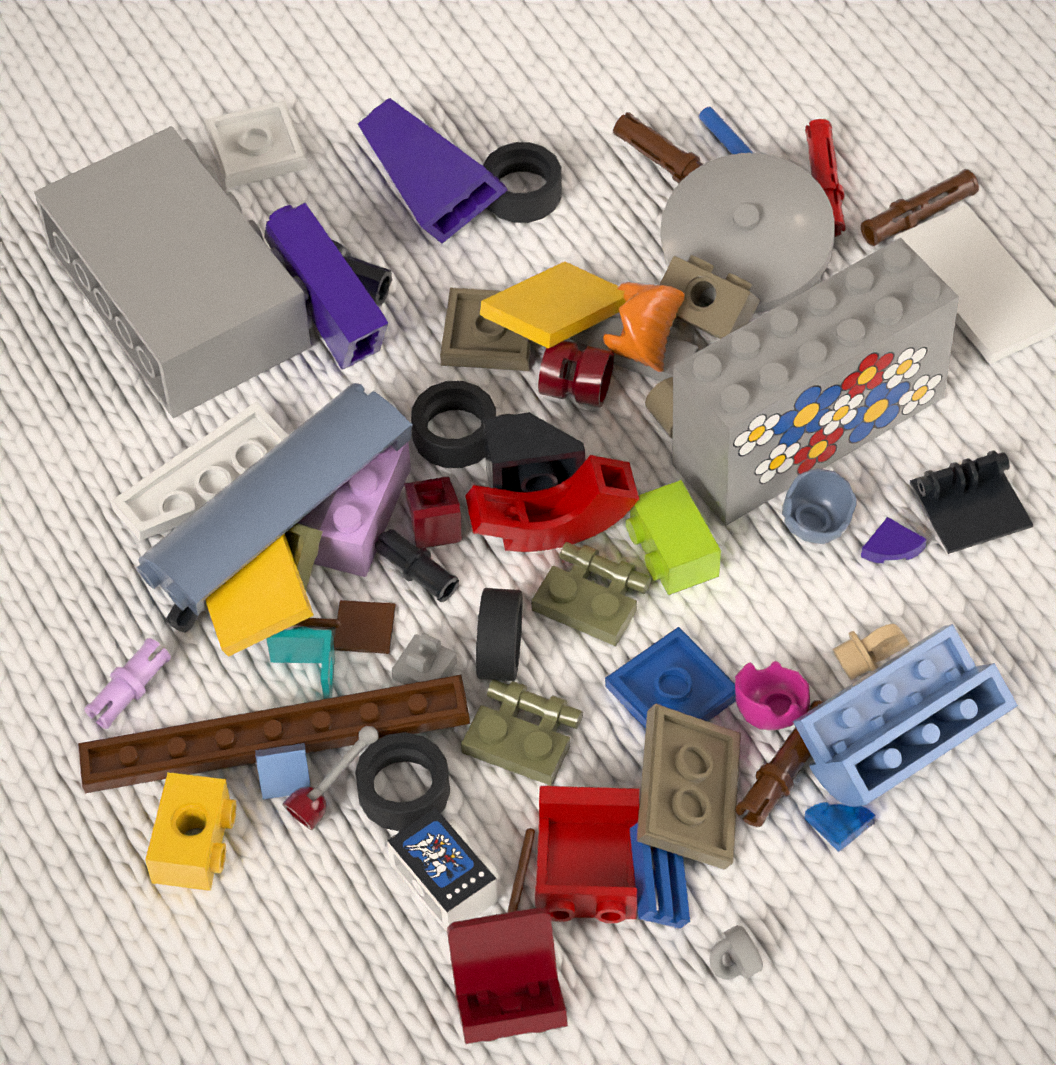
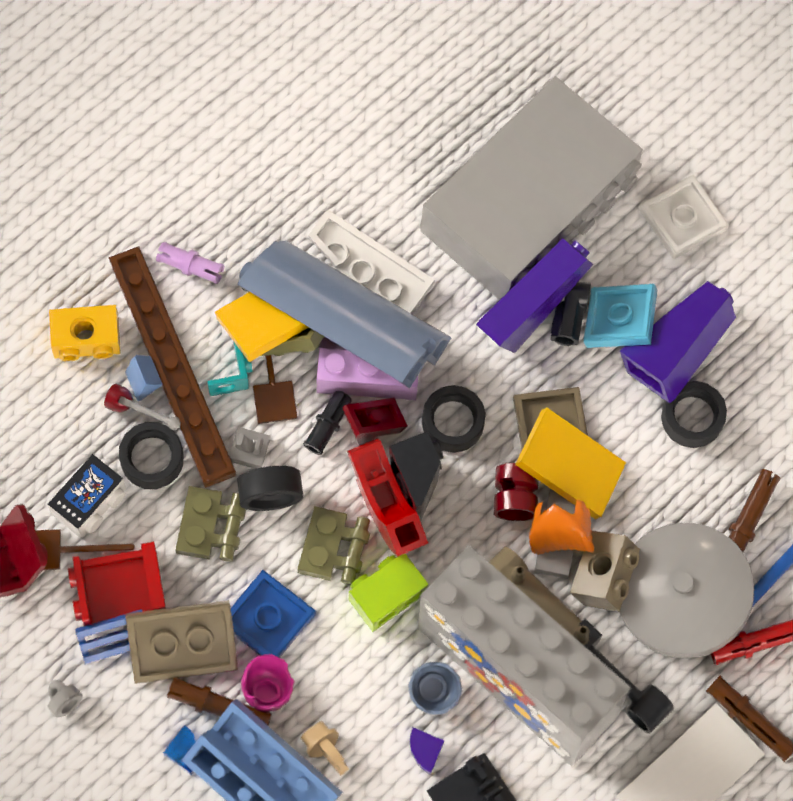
camera: 70 degrees right, 15 degrees up
(375, 217) = (620, 316): none -> medium azure tile

